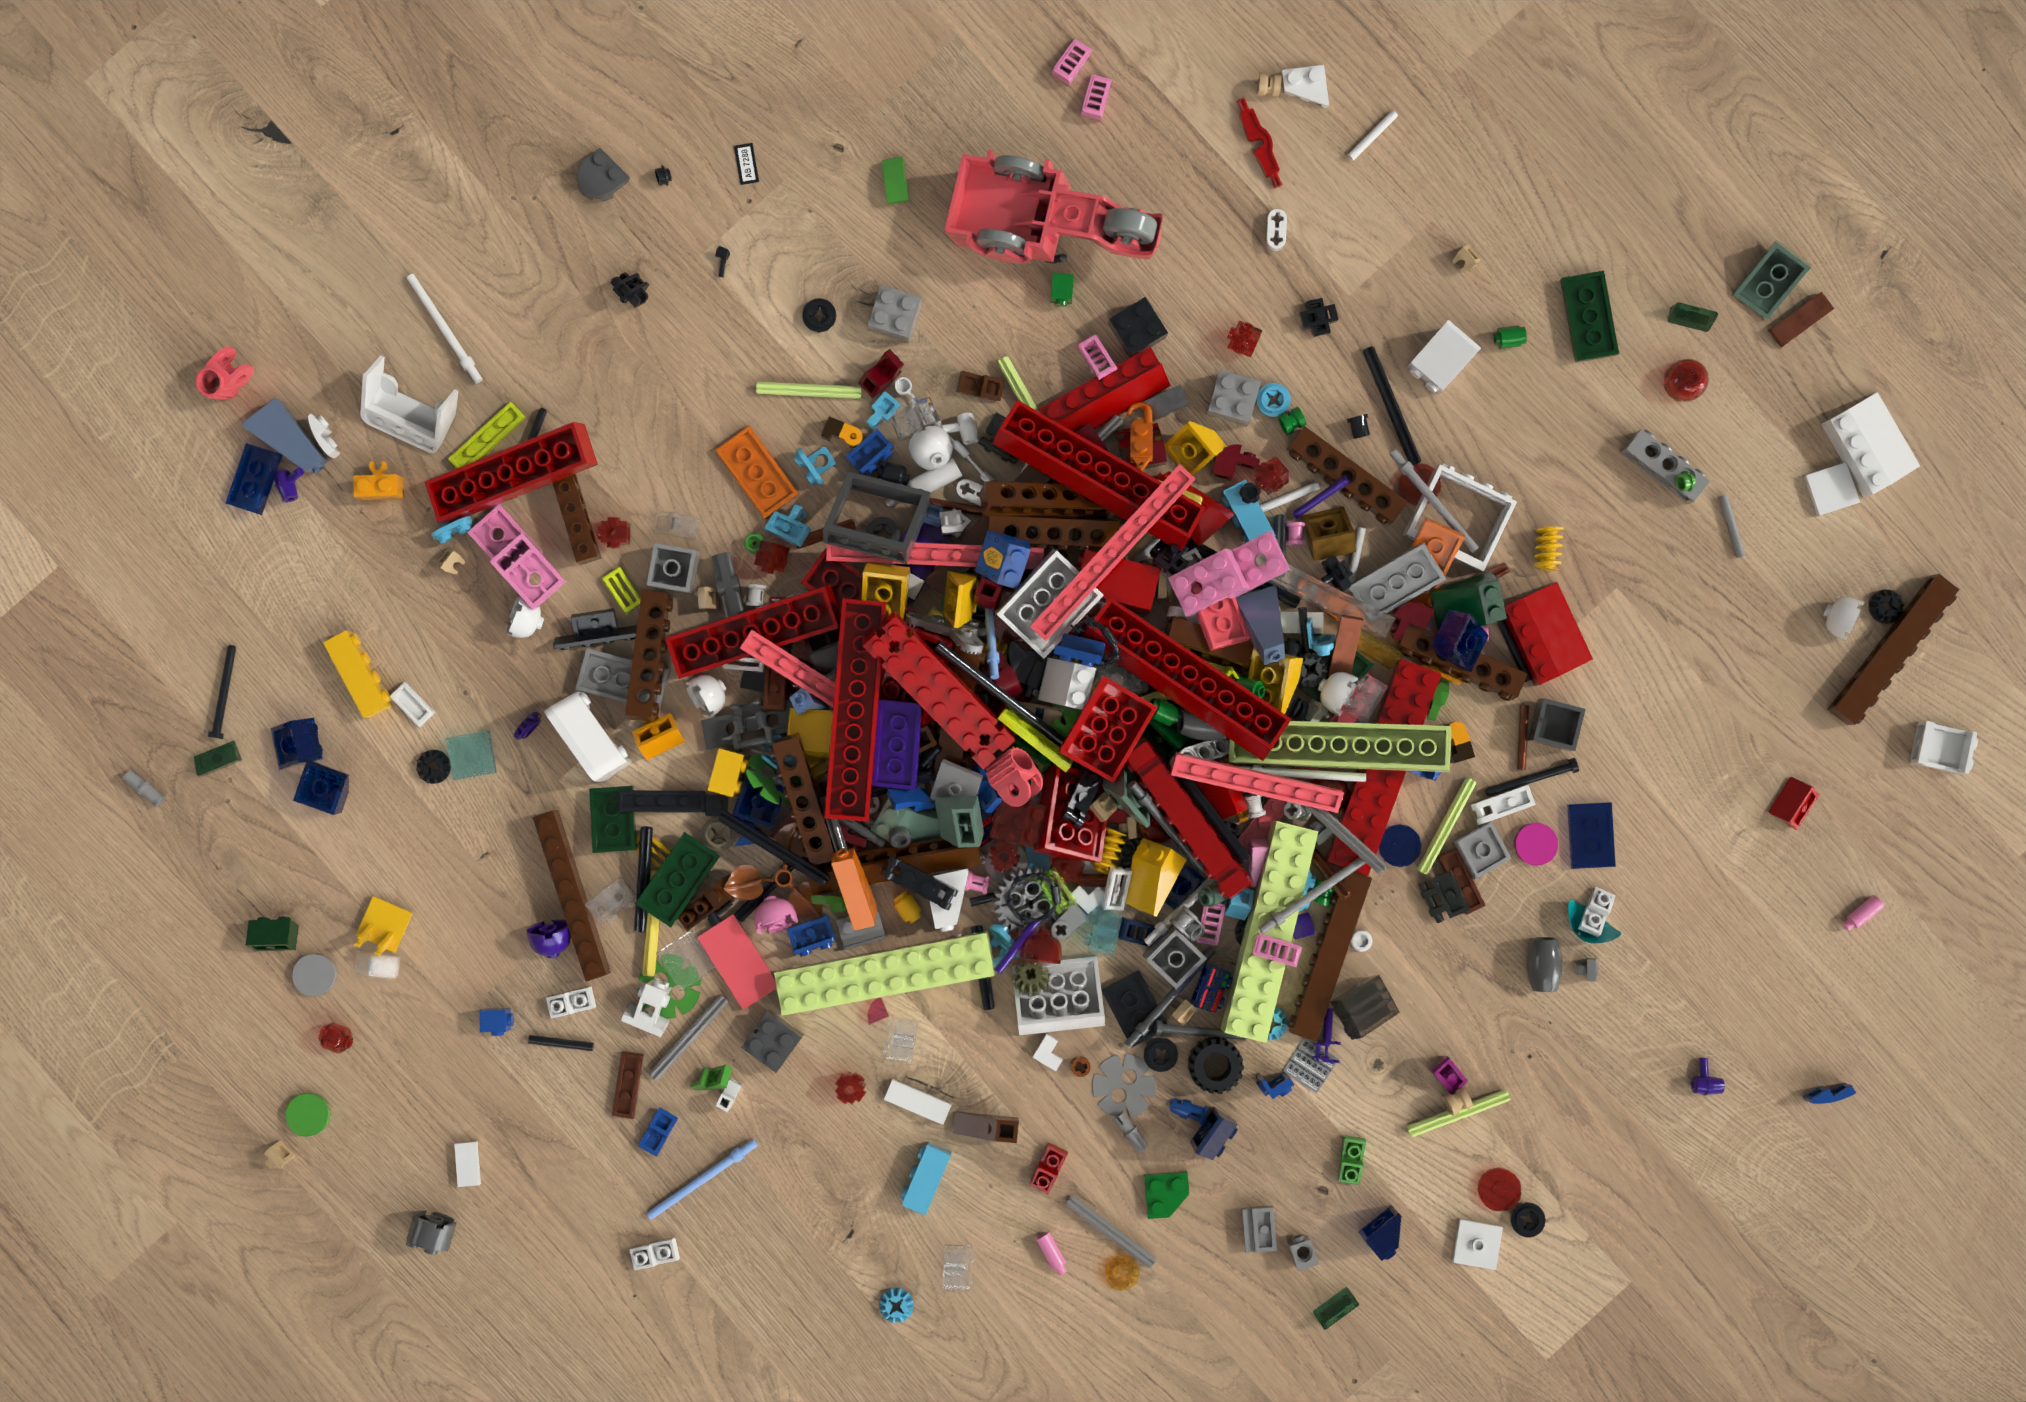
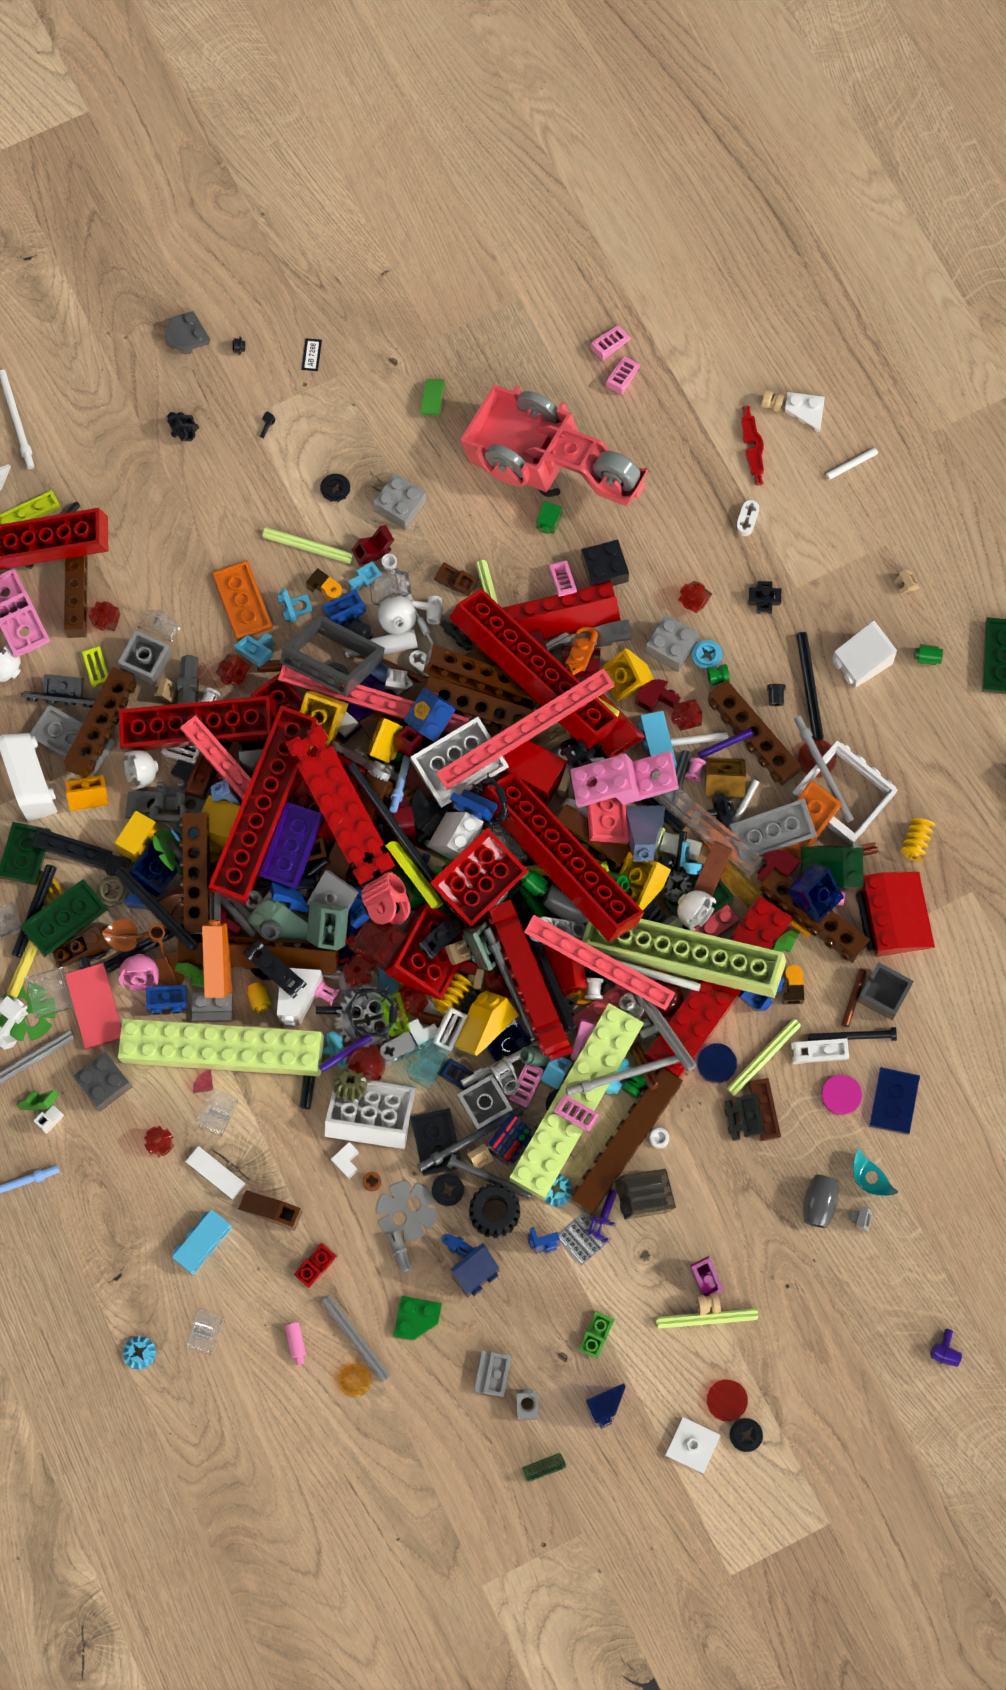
camera: 15 degrees right, 15 degrees down
(748, 544) = (218, 653): bright green plate -> none
(1250, 487) = (663, 717): black plate -> none
(1303, 926) = (608, 1110): dark purple slope -> none
(1365, 699) = (720, 920): clear brick -> none
(1482, 850) = (790, 1085): light grey plate -> none
(1596, 911) = (882, 1169): white slope -> none

